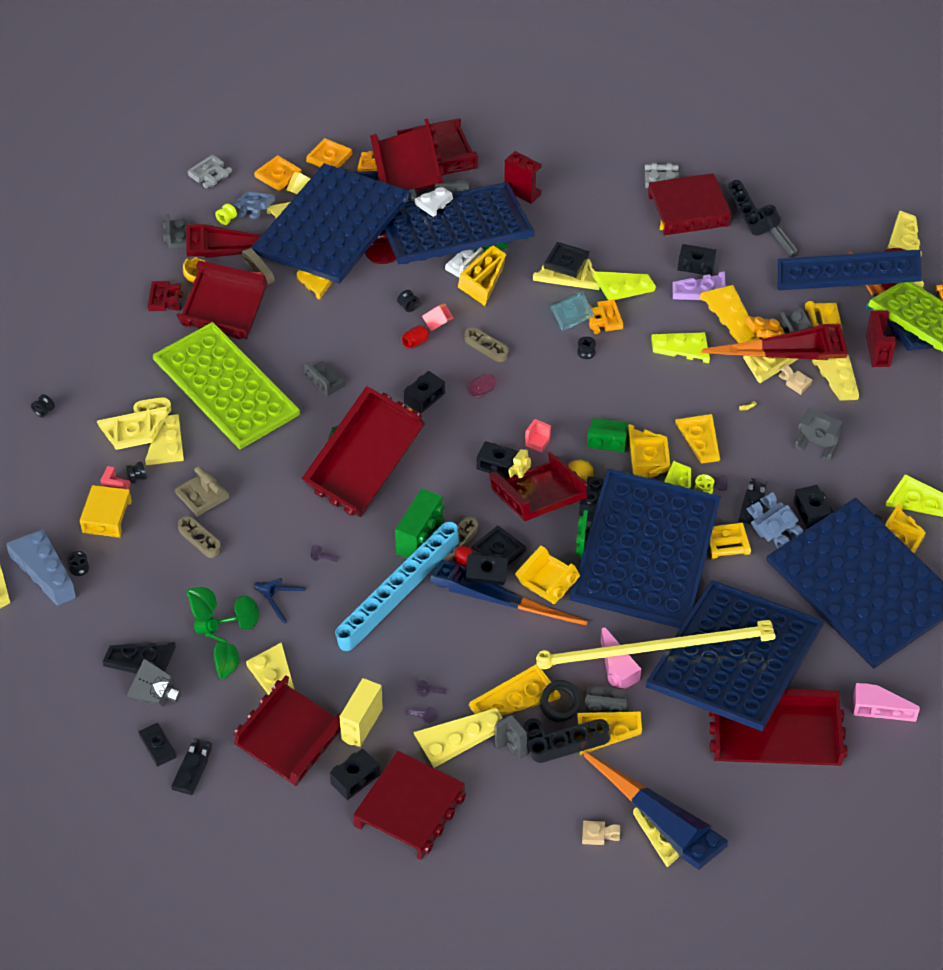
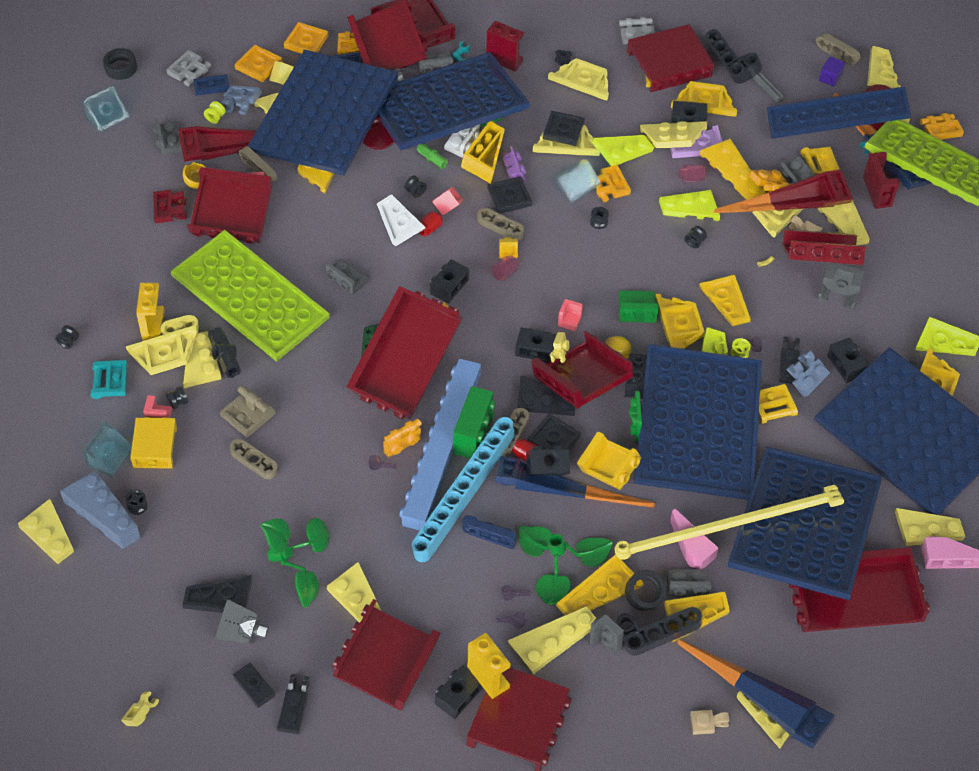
camera: 10 degrees left, 5 degrees up
(40, 754) = (137, 713): none -> light yellow plate
(58, 512) = (107, 450): none -> clear light blue slope
(80, 450) = (115, 378): none -> teal plate
(120, 201) = (104, 109): none -> clear light blue slope
(121, 392) = (148, 313): none -> yellow panel
(146, 169) = (120, 54): none -> black tyre
(190, 435) = (224, 352): none -> black piece
(223, 189) = (211, 85): none -> dark blue plate
(269, 590) = (335, 506): dark blue plant -> none
(347, 531) = (402, 438): none -> light orange plate
(361, 712) = (454, 627): light yellow brick -> none
(381, 547) = (439, 449): none -> medium blue brick
(382, 746) = (487, 665): none -> yellow panel
(385, 330) = (398, 220): none -> white wing
(416, 629) = (489, 532): none -> dark blue hinge
(431, 274) = (432, 156): none -> bright green axle
(434, 200) = (421, 79): white wing -> none
(462, 642) = (537, 539): none -> green plant
(481, 178) = (457, 54): none -> teal arm
(489, 365) = (508, 247): none -> yellow tile
(494, 511) = (541, 399): none -> black wing
(500, 318) = (509, 195): none -> black plate
(511, 291) = (513, 159): none -> medium lavender hinge
(581, 194) = (563, 57): none -> black plate
(597, 214) = (583, 77): none -> light yellow wing
(678, 276) = (673, 134): none -> light yellow wing
(680, 375) = (695, 236): none -> black wheel
(689, 314) = (692, 173): none -> clear pink brick
(727, 245) = (714, 95): none -> yellow wing
(779, 522) = (819, 380): sand blue plate -> none
(806, 395) = (823, 247): none -> dark red panel
(852, 231) = (831, 71): none -> dark purple brick
(853, 671) = (918, 525): none -> light yellow wing
(872, 217) = (848, 54): none -> dark tan beam

